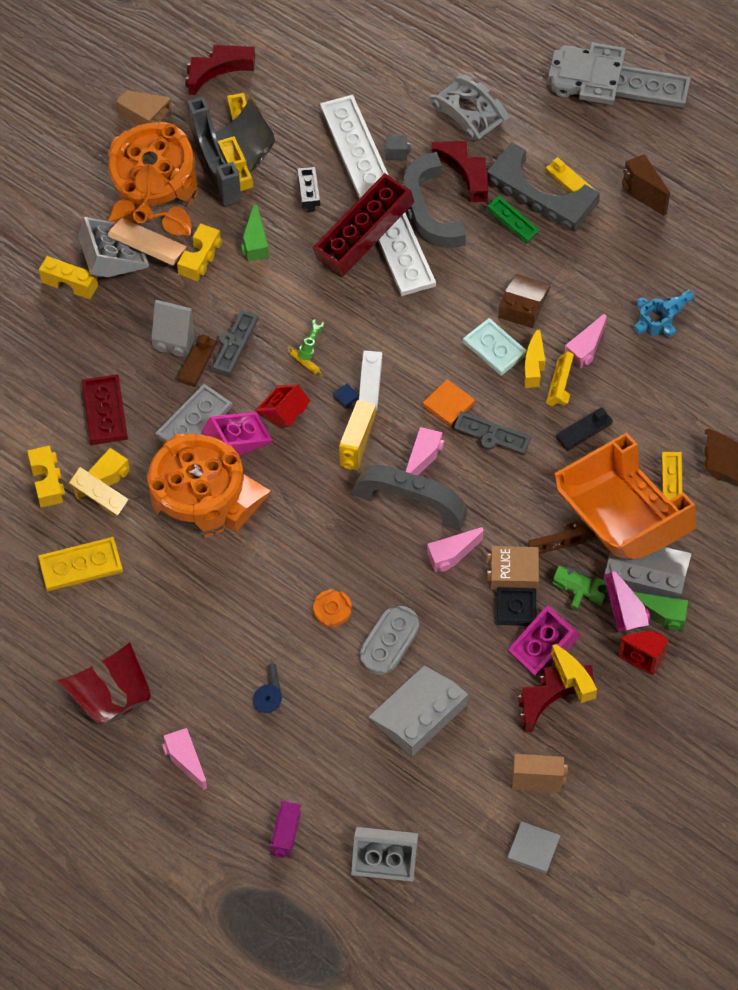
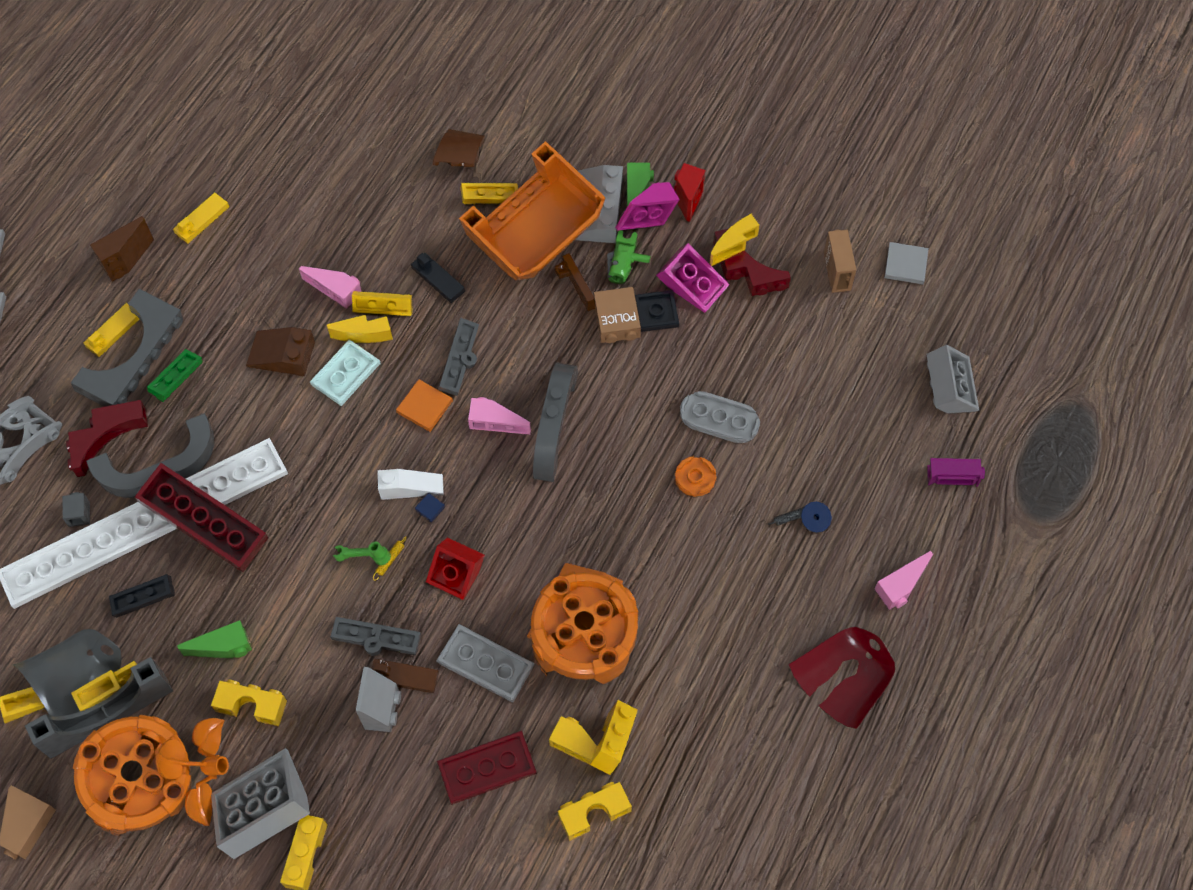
camera: 100 degrees left, 5 degrees up
(80, 564) = (697, 746): yellow tile -> none
(147, 241) = (245, 764): light nougat tile -> none
(241, 431) = (501, 609): dark pink slope -> none
(356, 435) = (486, 482): yellow slope -> none
(419, 709) = (792, 375): light grey slope -> none
(449, 551) = (609, 374): bright pink slope -> none
(668, 309) = (281, 219): dark azure piece -> none
(680, 250) = (201, 218): none -> yellow hinge

